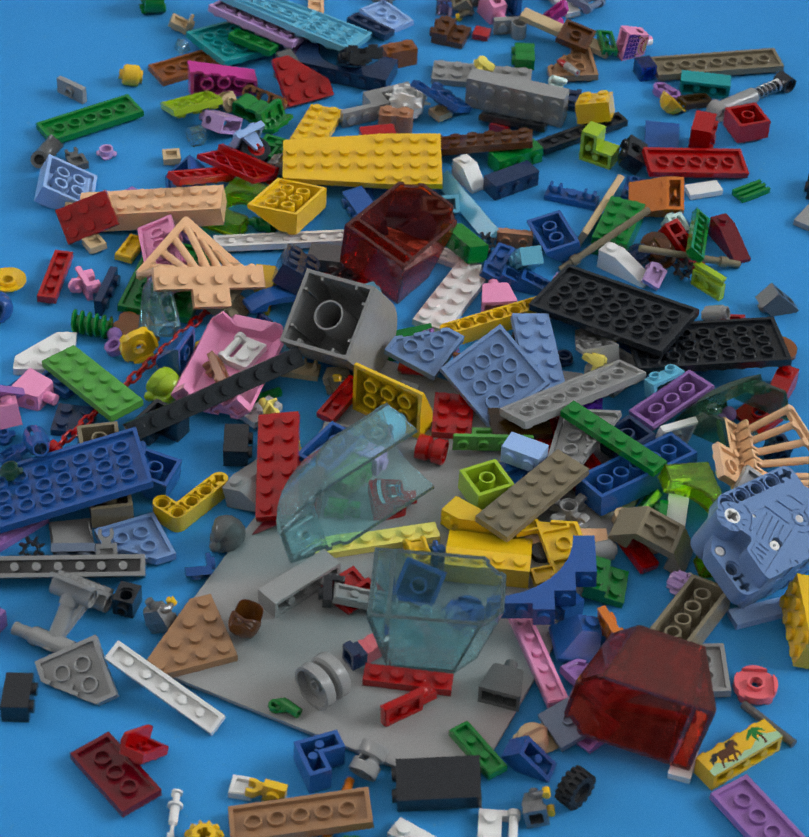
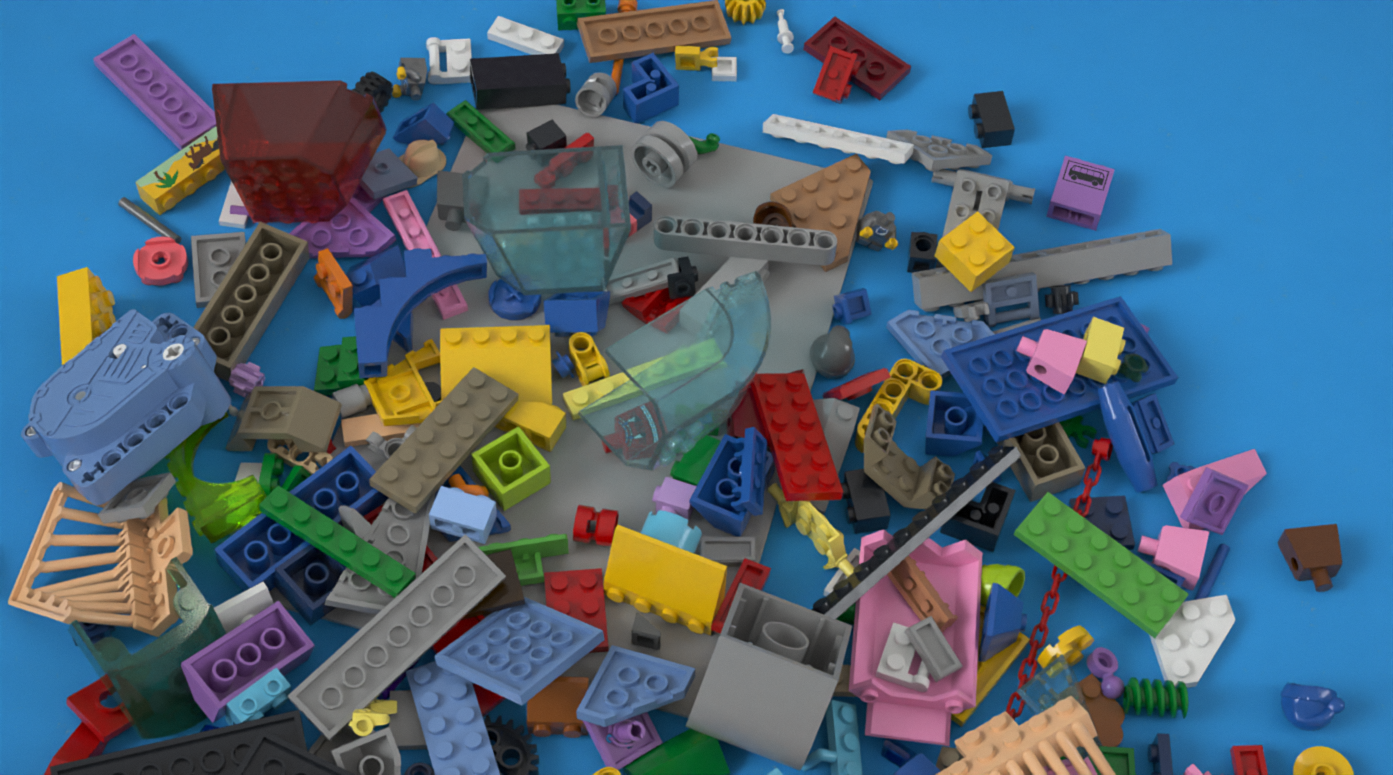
camera: 170 degrees right, 15 degrees up
(32, 475) = (1101, 350): none -> light yellow brick
(70, 468) = (1053, 358): none -> bright pink torso
(96, 550) = (974, 251): none -> yellow brick
(203, 450) = (897, 472): none -> dark tan slope
(226, 344) = (933, 649): none -> light grey tile
(228, 493) = (857, 386): none -> red piece
(276, 592) = (745, 240): none -> light grey beam
(323, 426) = (751, 472): none -> blue plate
(422, 716) = (546, 137): none -> black brick
(515, 471) = (458, 482): none -> orange arm
(599, 452) = (354, 521): none -> light grey slope

